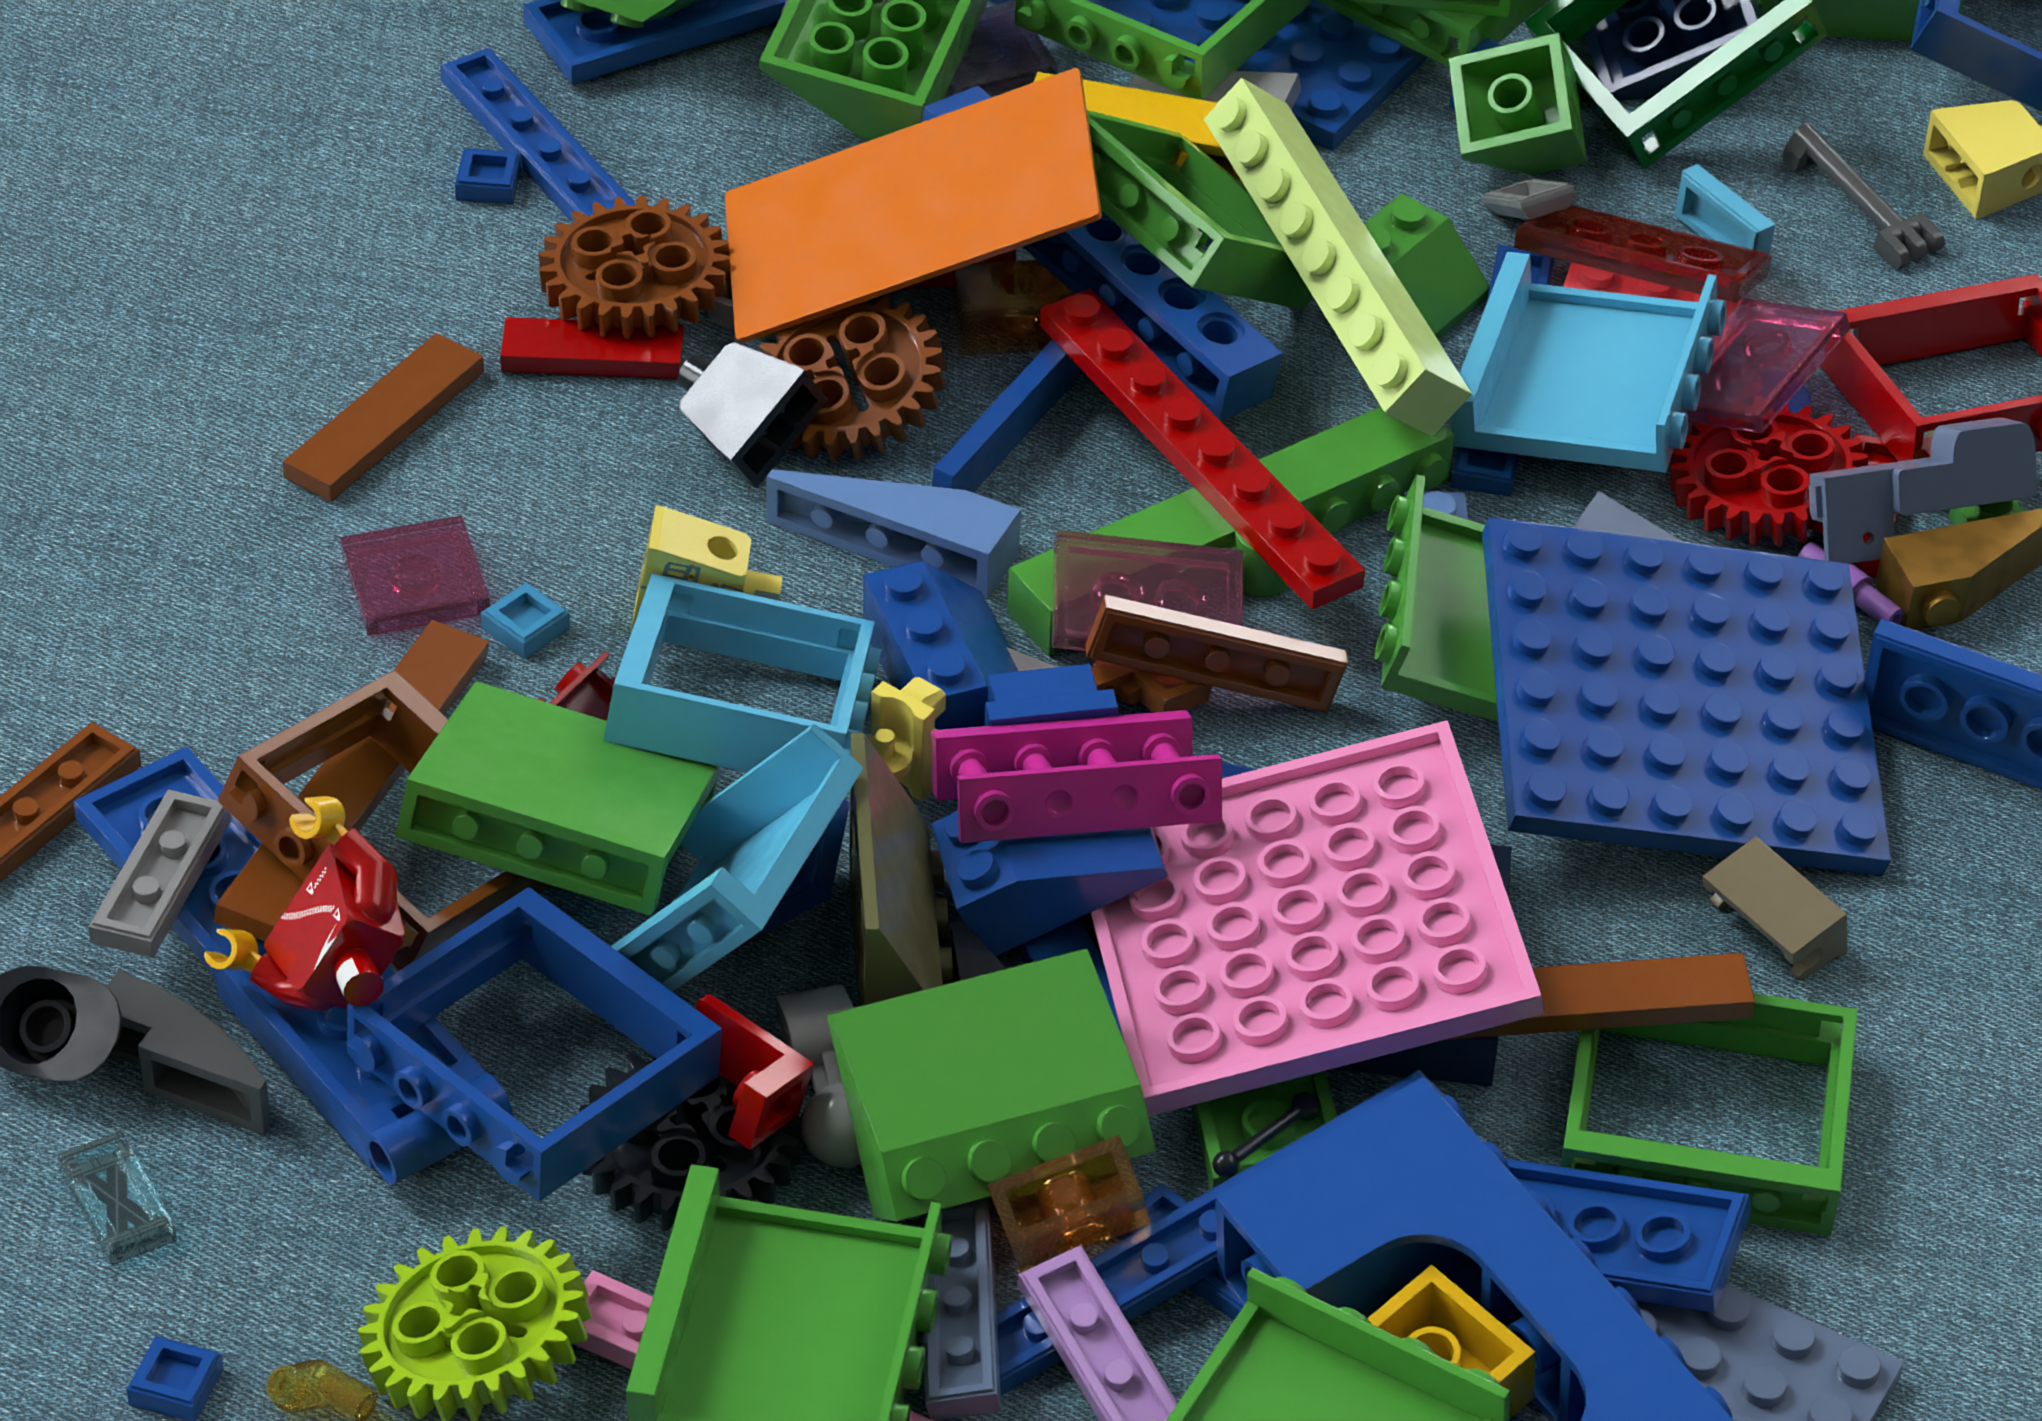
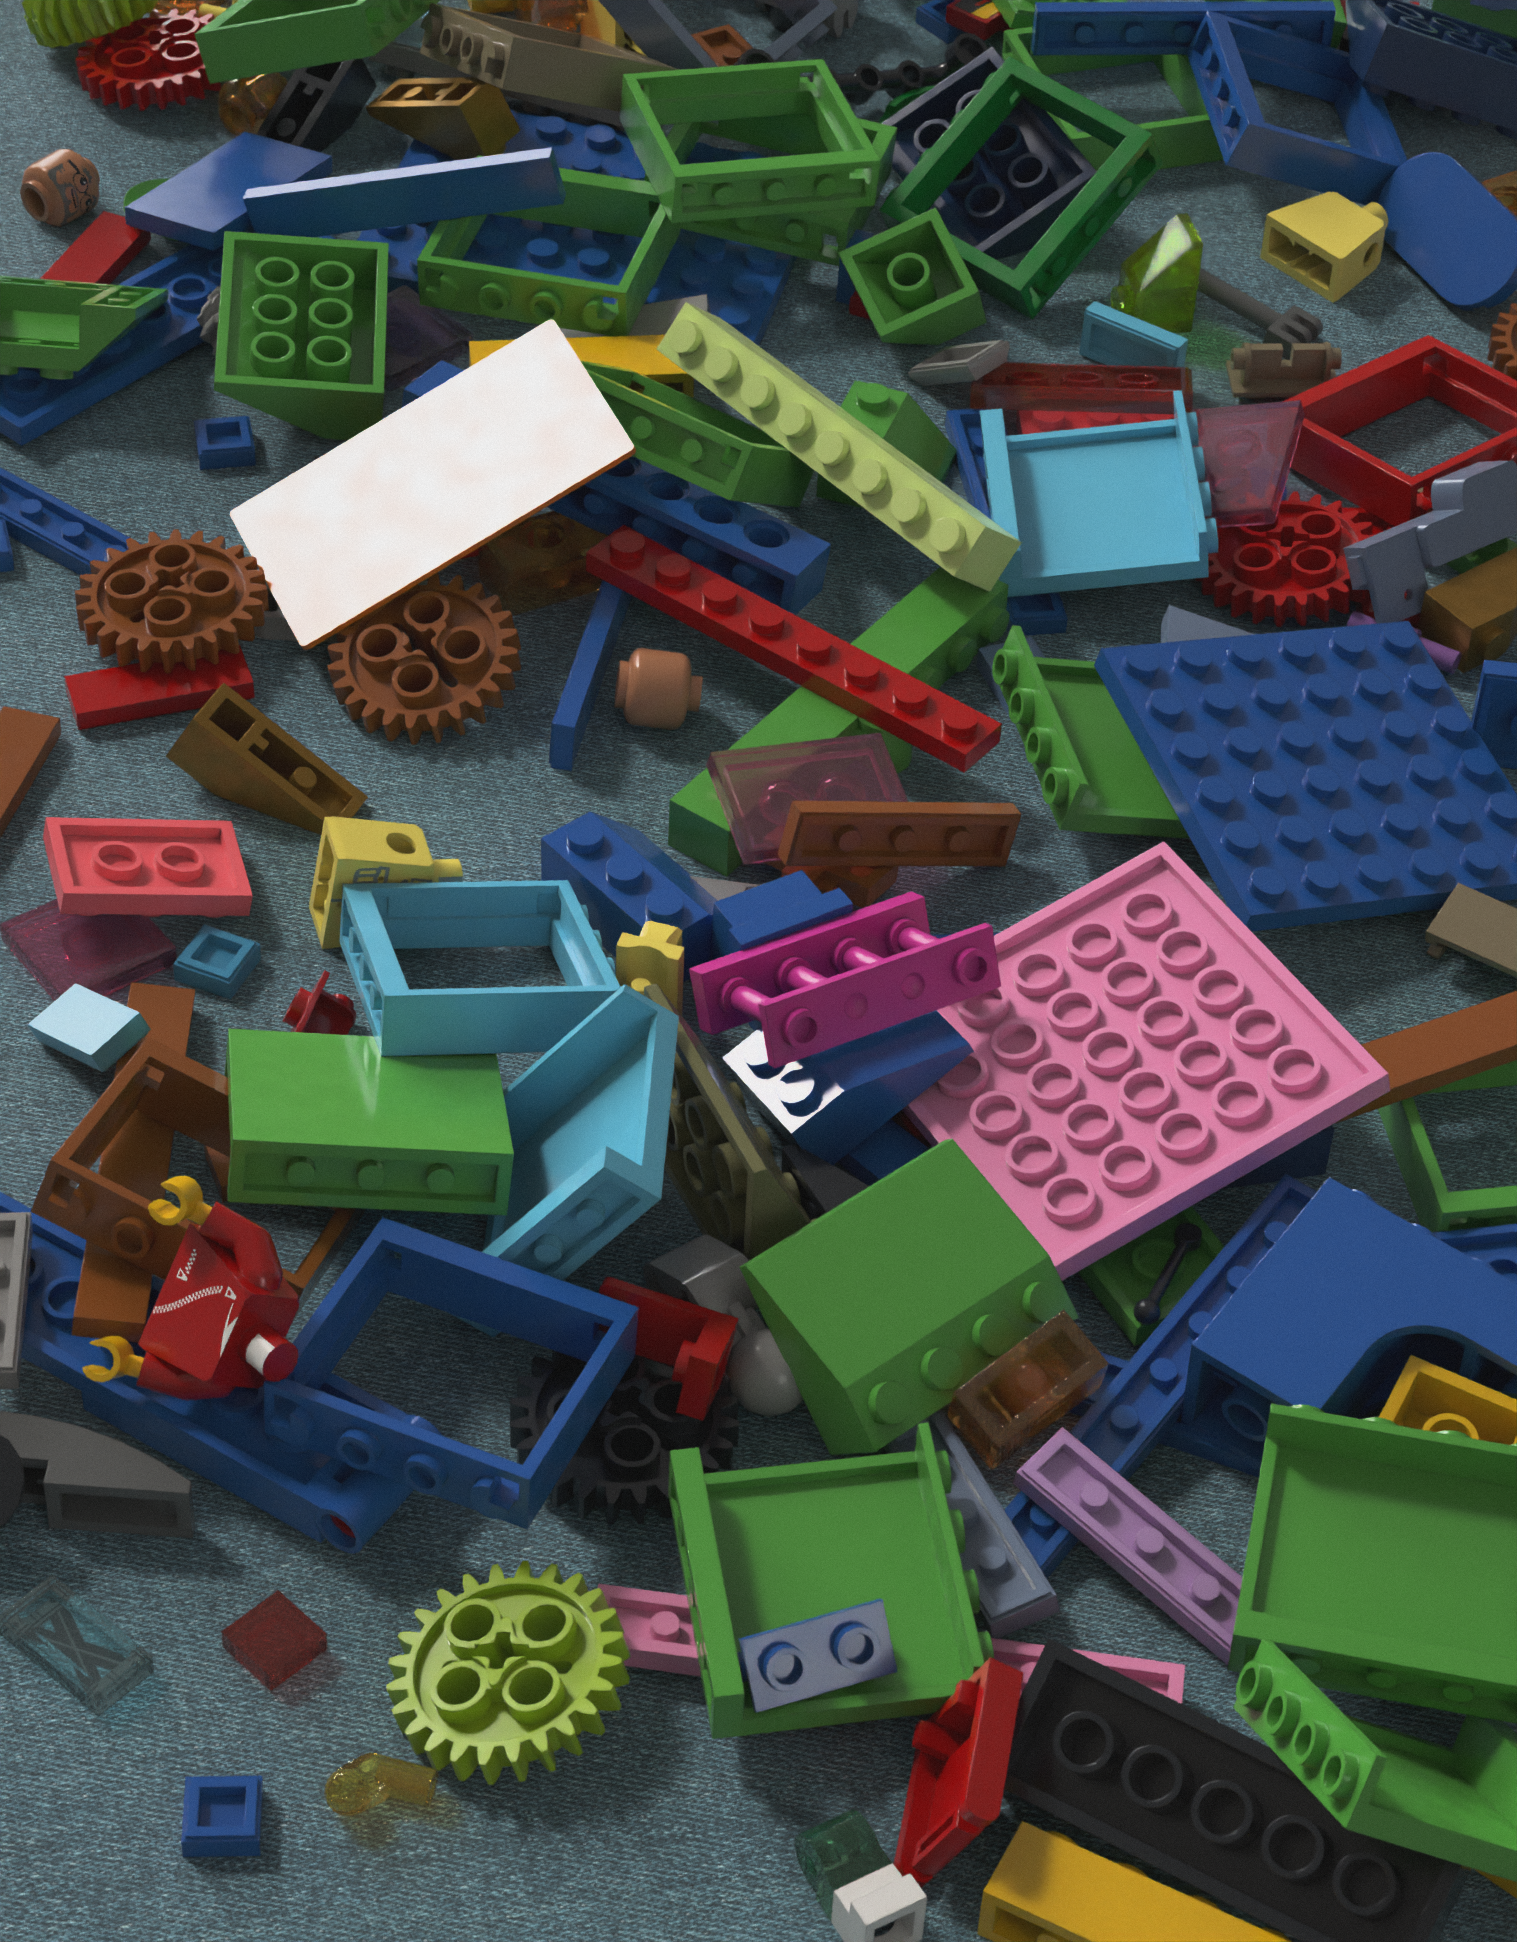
camera: 20 degrees left, 0 degrees up
(289, 1241) = (274, 1640): none -> clear red tile
(371, 649) = (89, 1027): none -> medium azure tile
(492, 515) = (146, 867): none -> coral plate
(645, 443) = (260, 765): none -> pearl gold slope
(742, 1382) = (817, 1655): none -> hinge
(748, 406) = (346, 706): torso -> none
(766, 122) = (224, 442): none -> blue tile
(900, 523) = (534, 783): medium blue slope -> none
(1058, 458) = (657, 688): none -> nougat head
(1780, 159) = (1162, 277): none -> clear neon green slope
(1847, 276) = (1260, 372): none -> dark tan hinge

